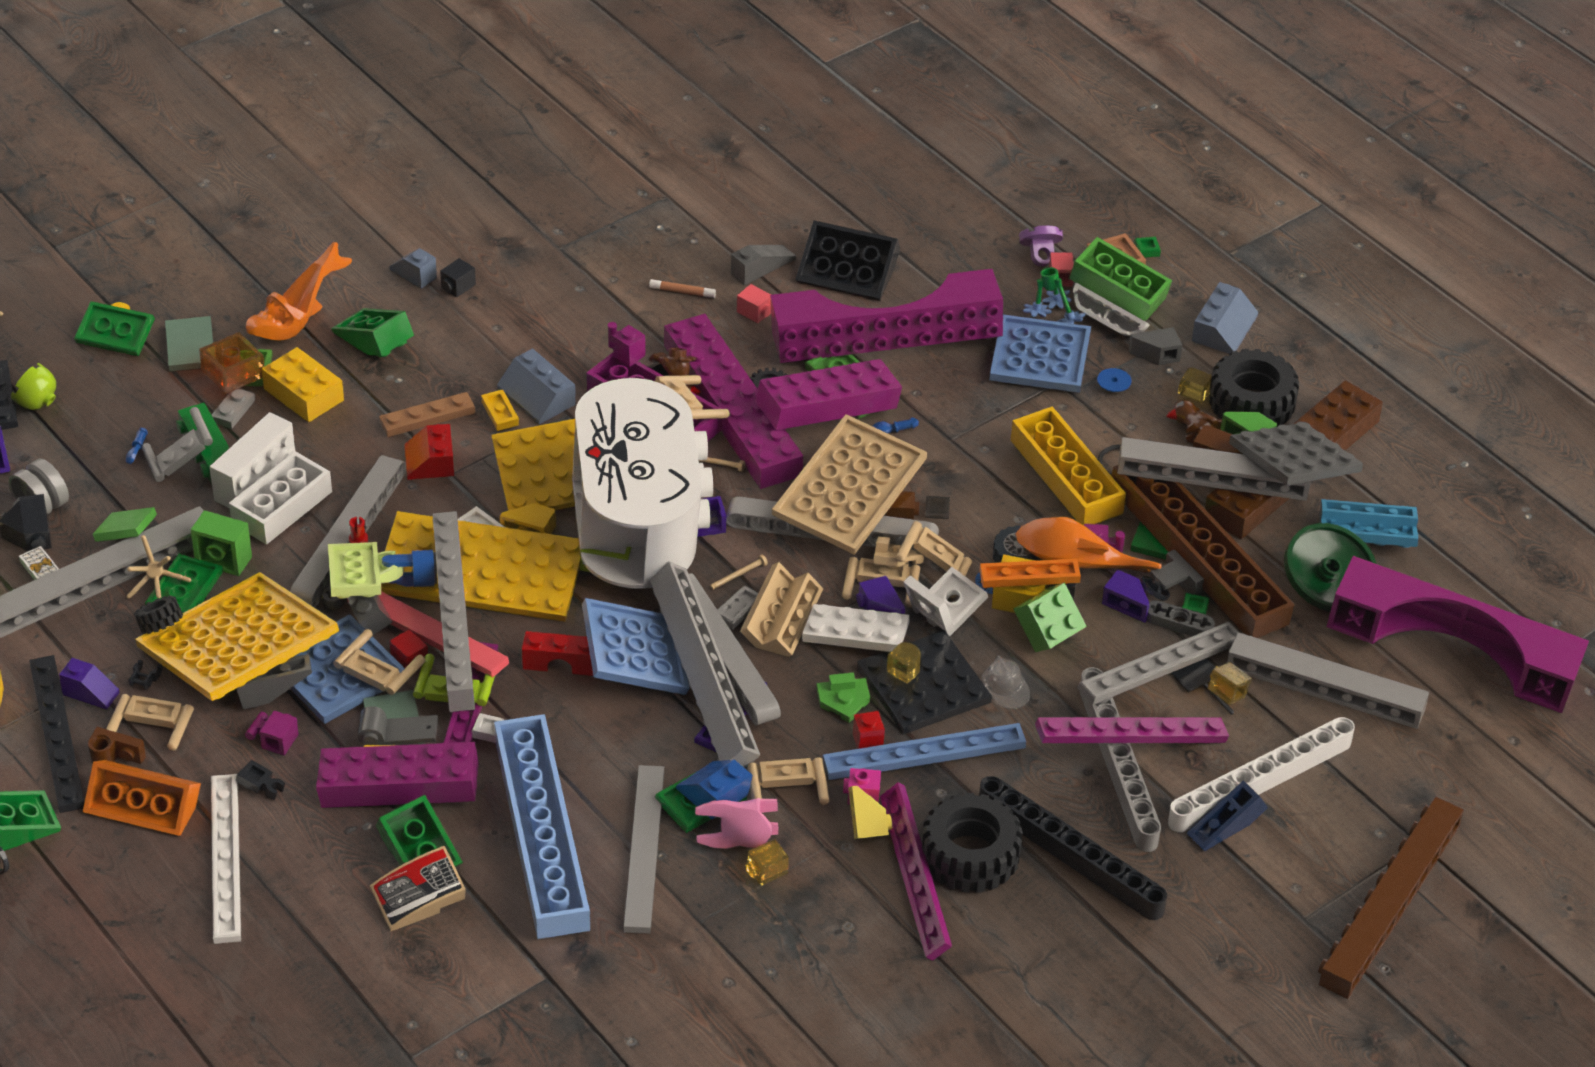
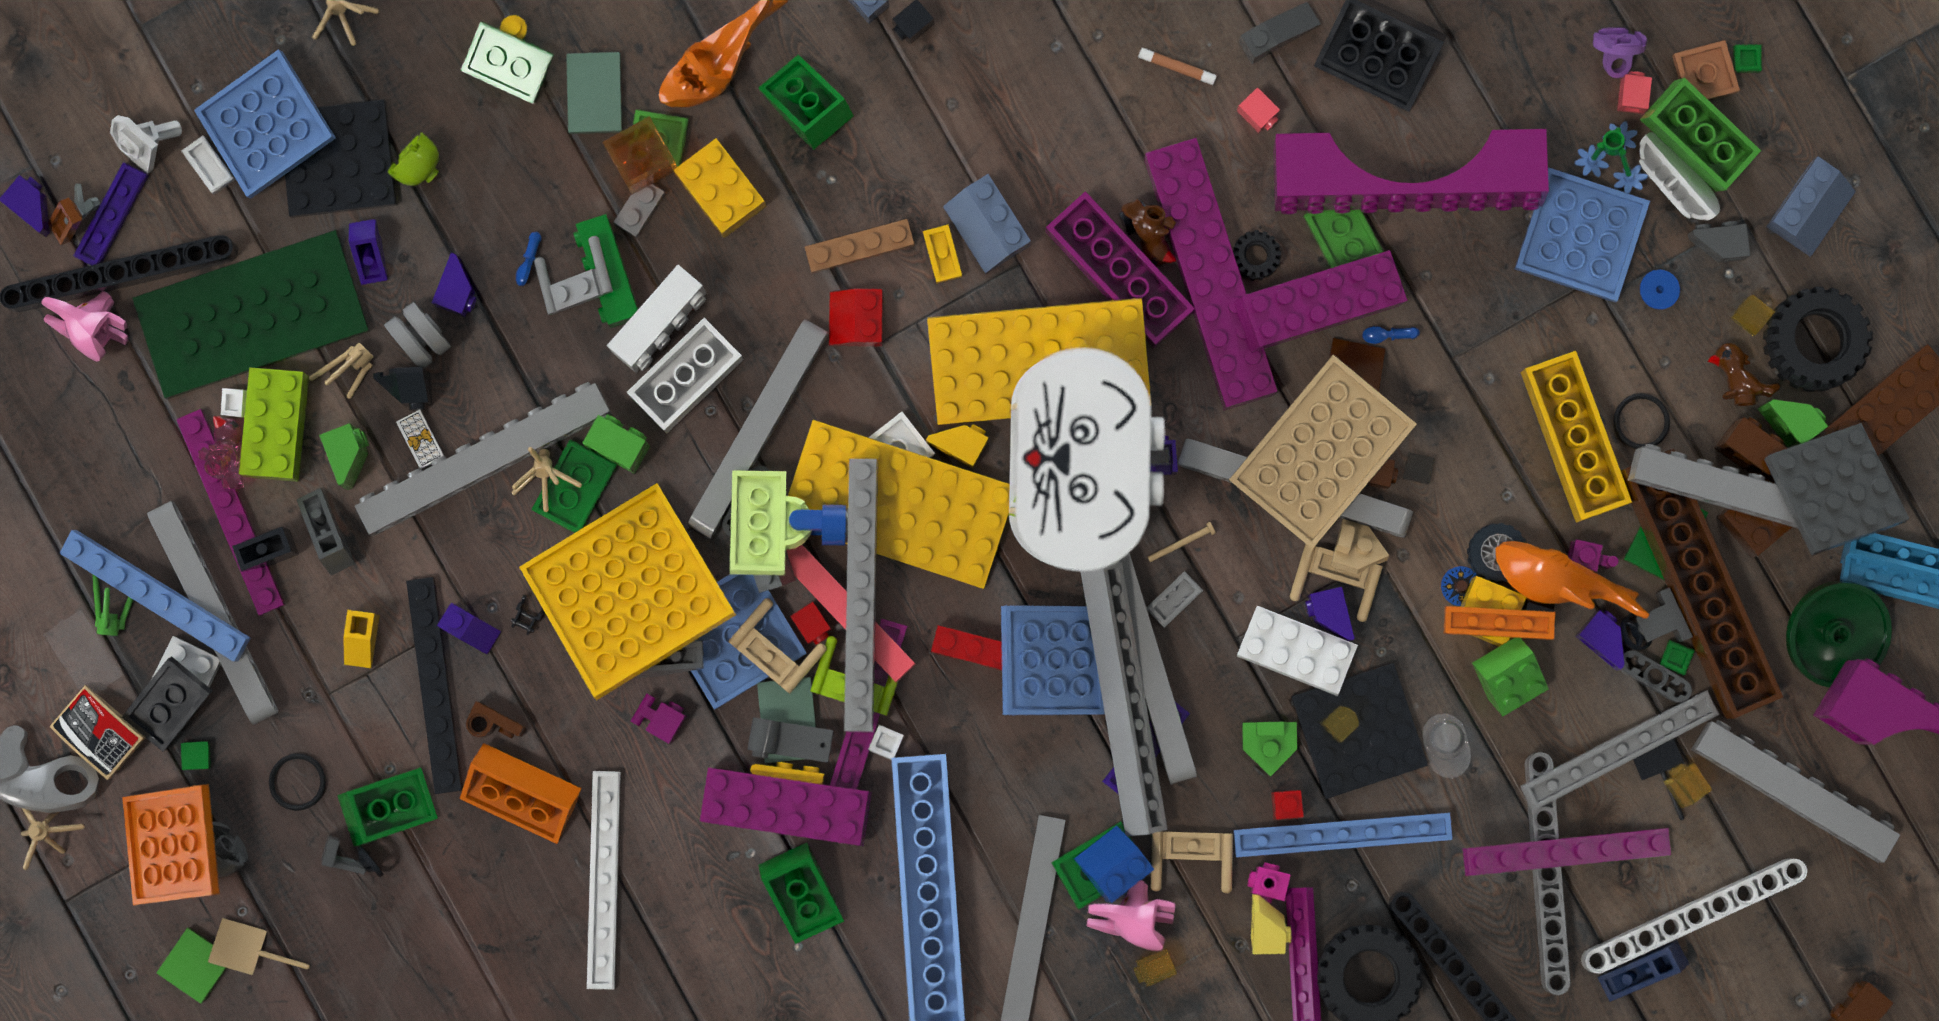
camera: 10 degrees right, 40 degrees up
(72, 465) = (455, 289): none -> dark purple slope
(124, 524) = (511, 396): bright green tile -> none
(153, 712) = (535, 674): tan plate -> none
(158, 614) = (550, 551): black tyre -> none
(260, 778) = (639, 782): black plate -> none
(357, 531) = (762, 452): red pin -> none
(418, 889) = (795, 961): slope -> none
(627, 343) = (1096, 199): magenta brick -> none
(679, 383) = (1150, 293): tan plate -> none
(741, 465) = (1205, 375): tan piece -> none
(781, 611) = (1220, 610): tan slope -> none
(933, 548) = (1404, 552): tan plate -> none
(934, 602) = (1390, 638): white bracket -> none

